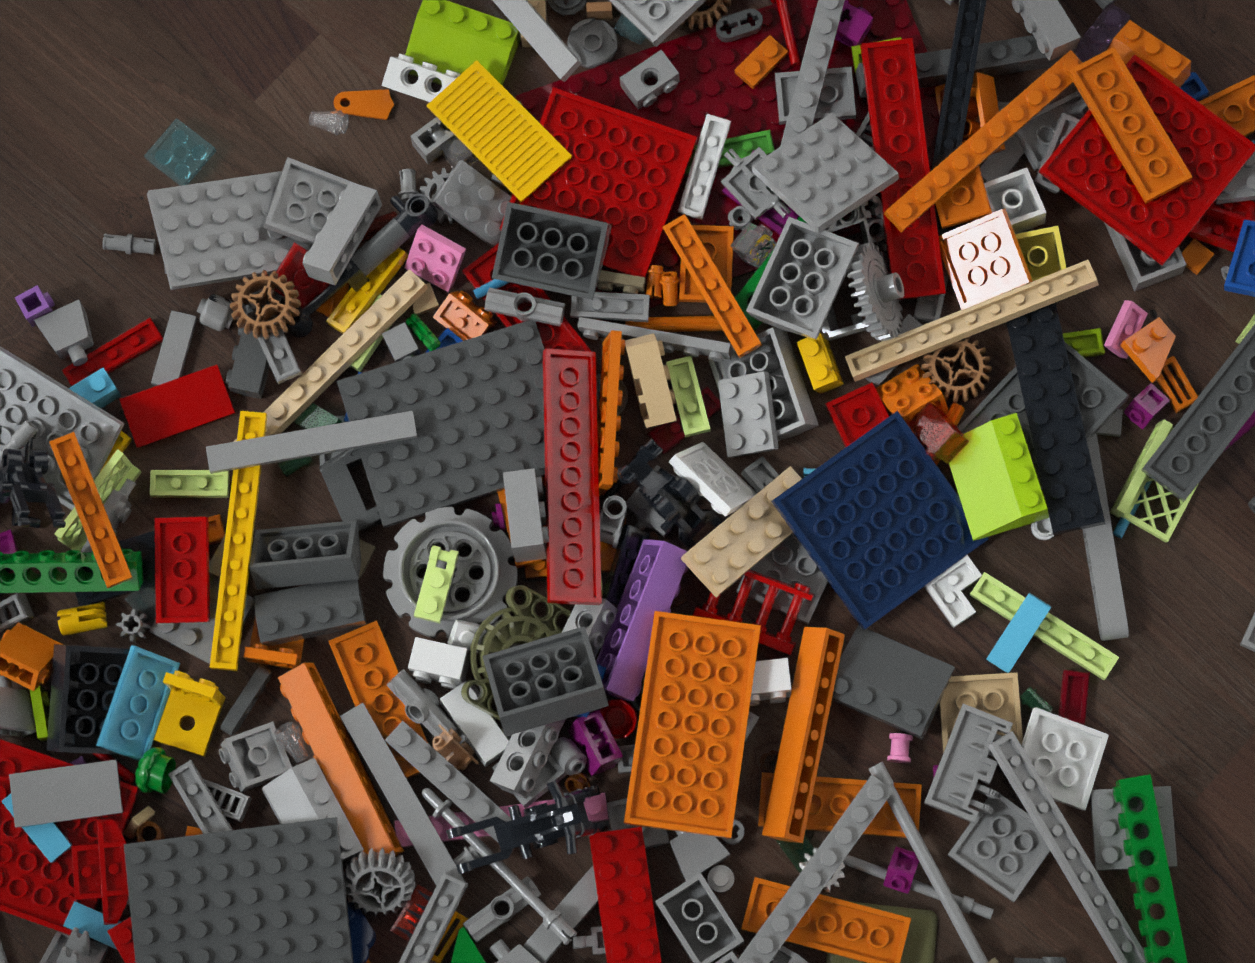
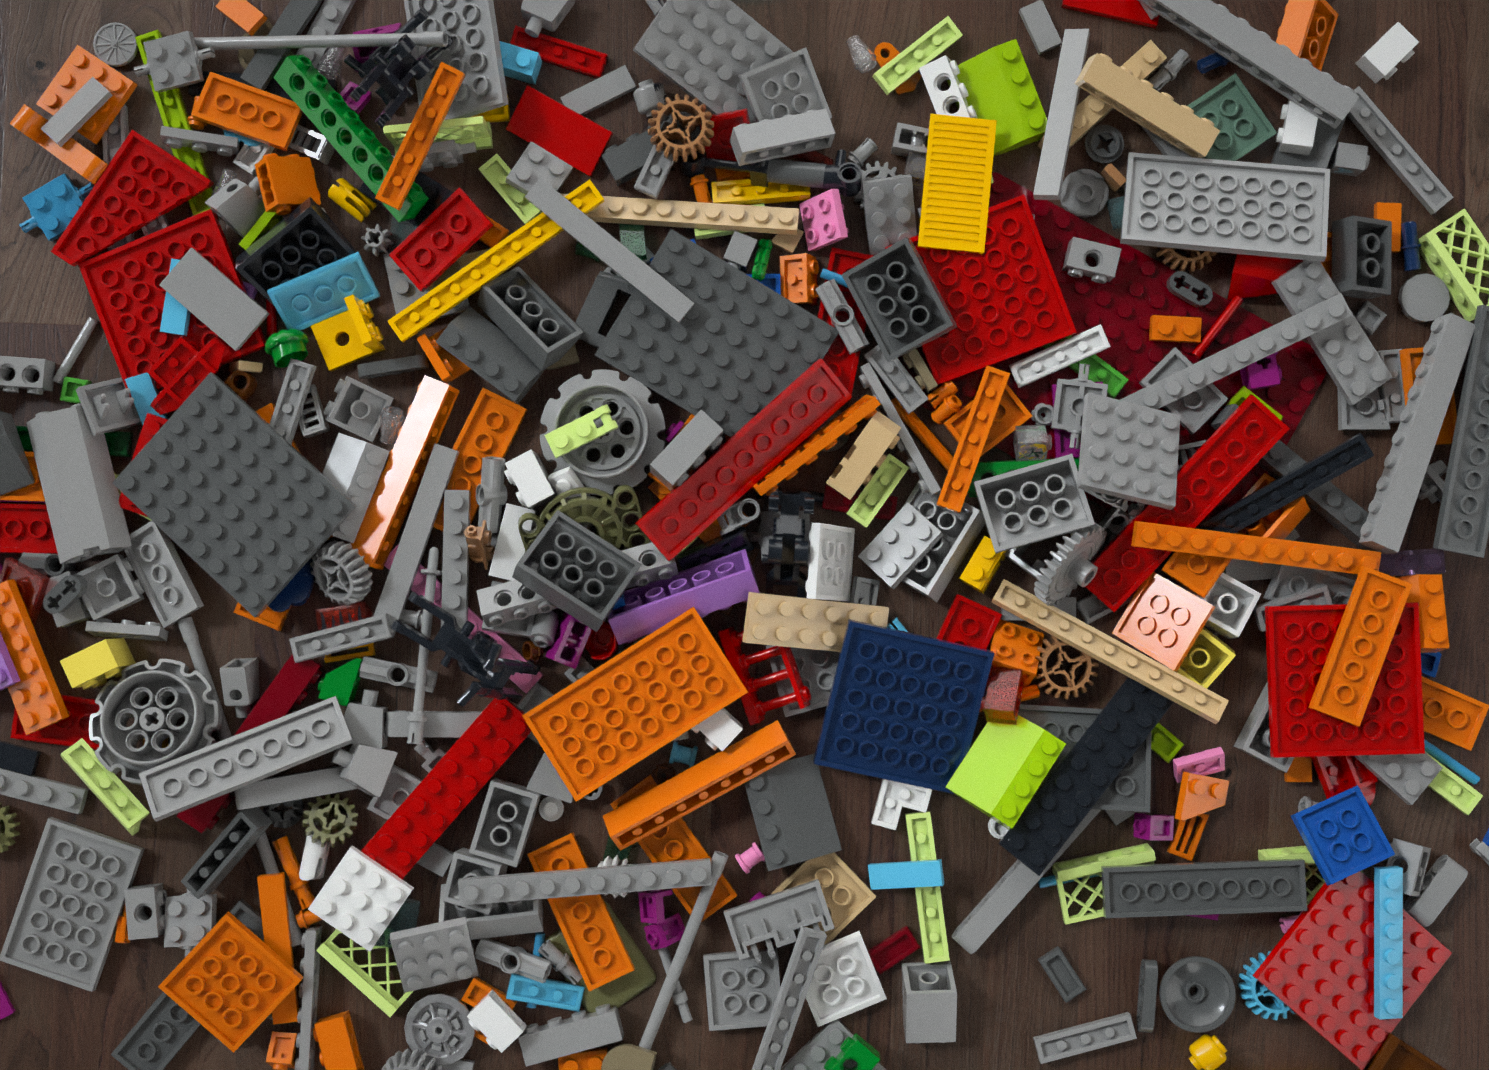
camera: 45 degrees right, 10 degrees up
(189, 449) = (538, 164): none -> light grey plate
(323, 333) = (700, 188): none -> orange pin
(370, 79) = (917, 55): none -> yellowish green plate
(768, 732) = (683, 754): none -> medium azure bush
(870, 858) = (652, 905): none -> magenta bracket
(1034, 700) = (866, 925): clear green pin -> none
(1140, 702) = (929, 1002): none -> light grey slope
(1207, 579) = (1061, 974): none -> dark grey tile

